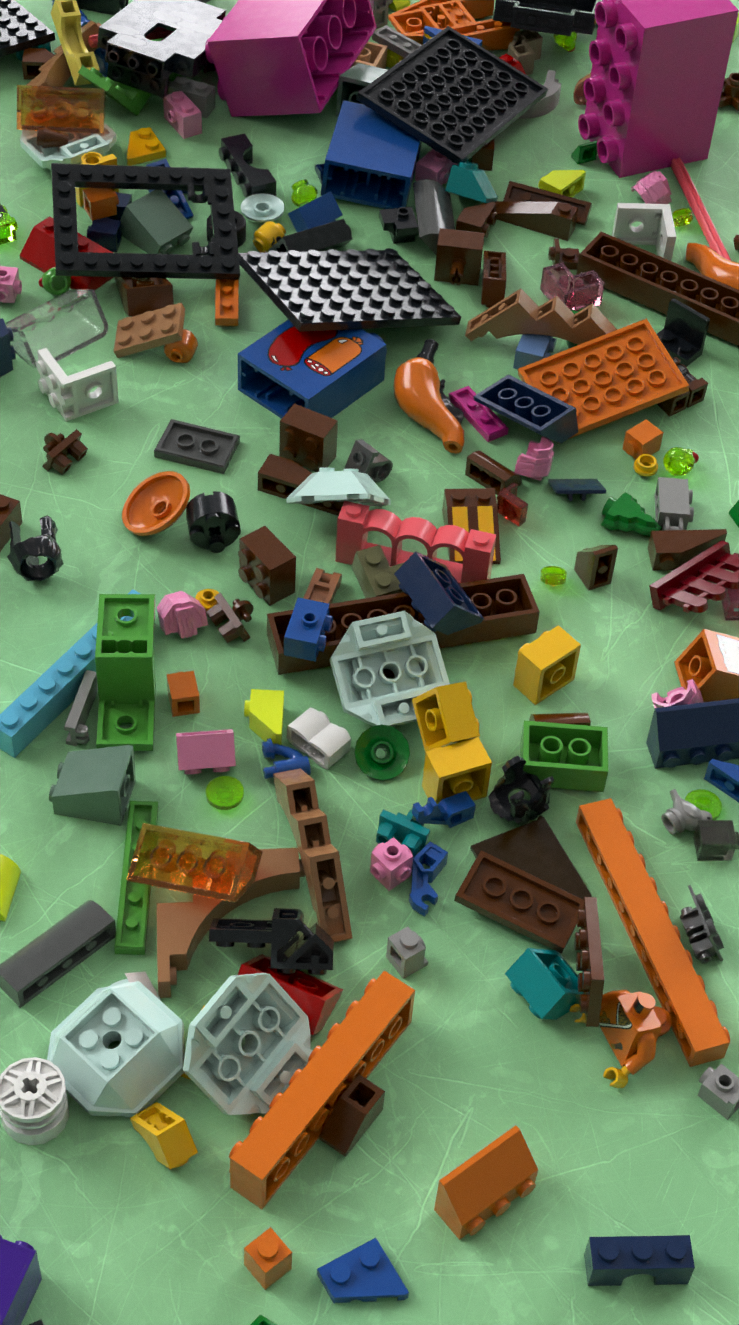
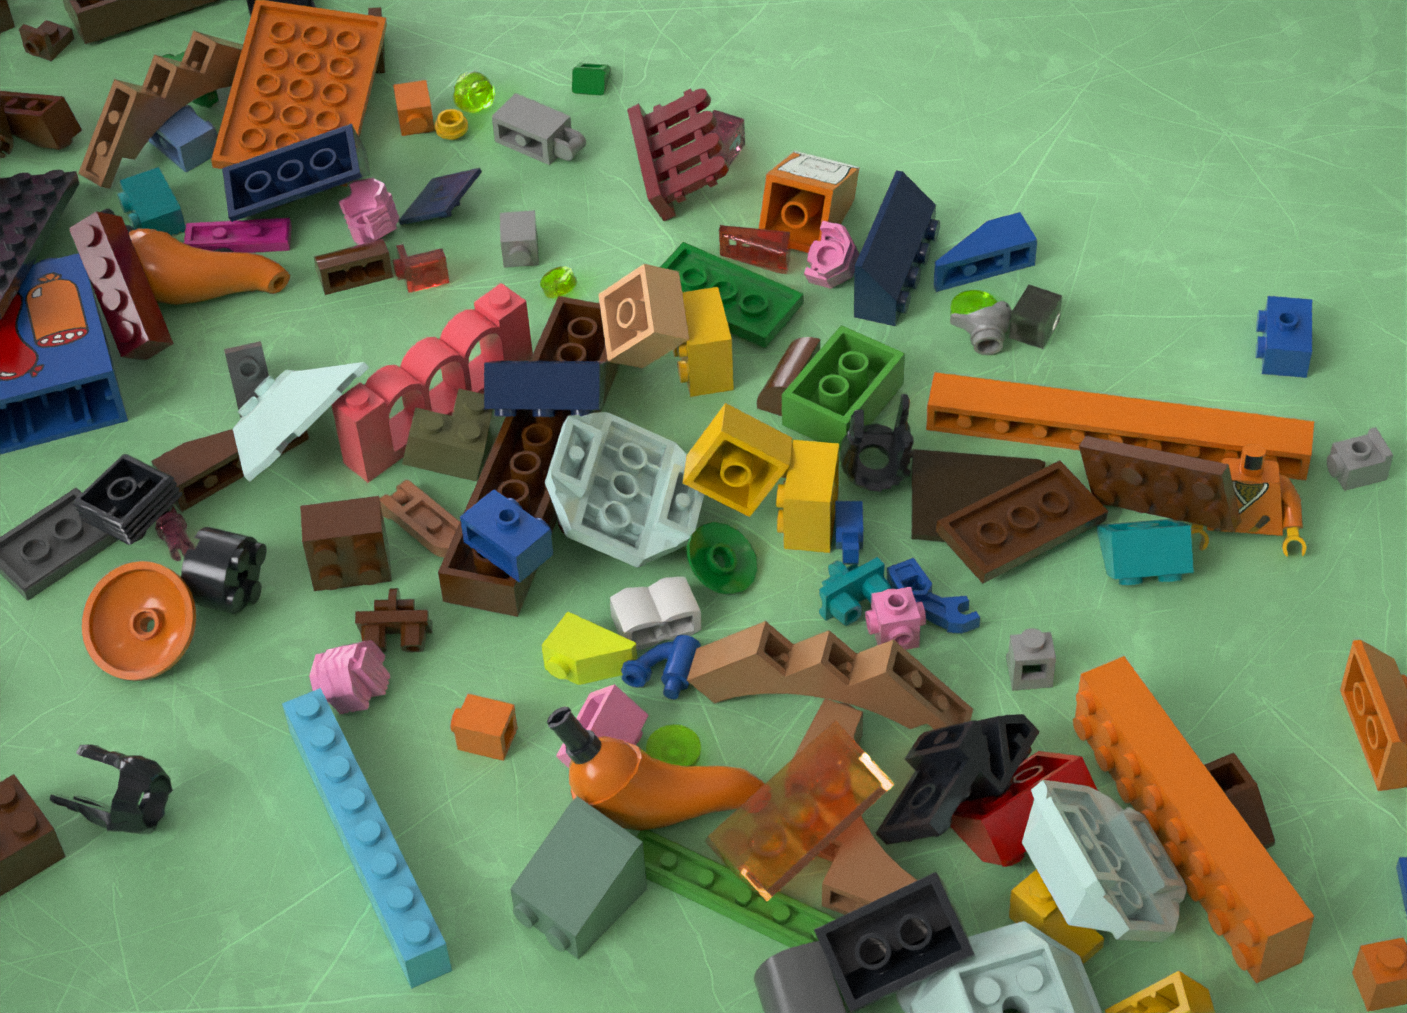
camera: 55 degrees left, 0 degrees up
(80, 710) = (436, 855): light grey hinge -> none
(124, 953) = (894, 942): none -> black slope
(126, 670) = (432, 761): bright green bracket -> none
(168, 775) = (640, 789): none -> orange animal
(206, 598) = (346, 630): yellow plate -> none
(233, 456) = (127, 499): none -> black brick
(239, 487) = (173, 531): none -> clear pink pin
(308, 438) = (158, 410): reddish brown brick -> none
(379, 374) = (121, 286): none -> dark red brick
(468, 363) = (151, 203): none -> teal brick
(472, 510) = (408, 310): reddish brown slope -> none
(526, 617) = (643, 316): none -> light nougat brick
(571, 539) = (519, 239): none -> light grey brick
(573, 290) = (118, 56): clear pink brick -> none
(596, 565) = (577, 232): reddish brown slope -> none
(606, 663) = (752, 303): none -> green plate
(628, 516) = (520, 175): green rock -> none
(661, 663) = (767, 247): none -> clear red slope
(675, 547) = (600, 157): reddish brown slope -> none
(701, 929) = (1135, 367): dark grey hinge -> none

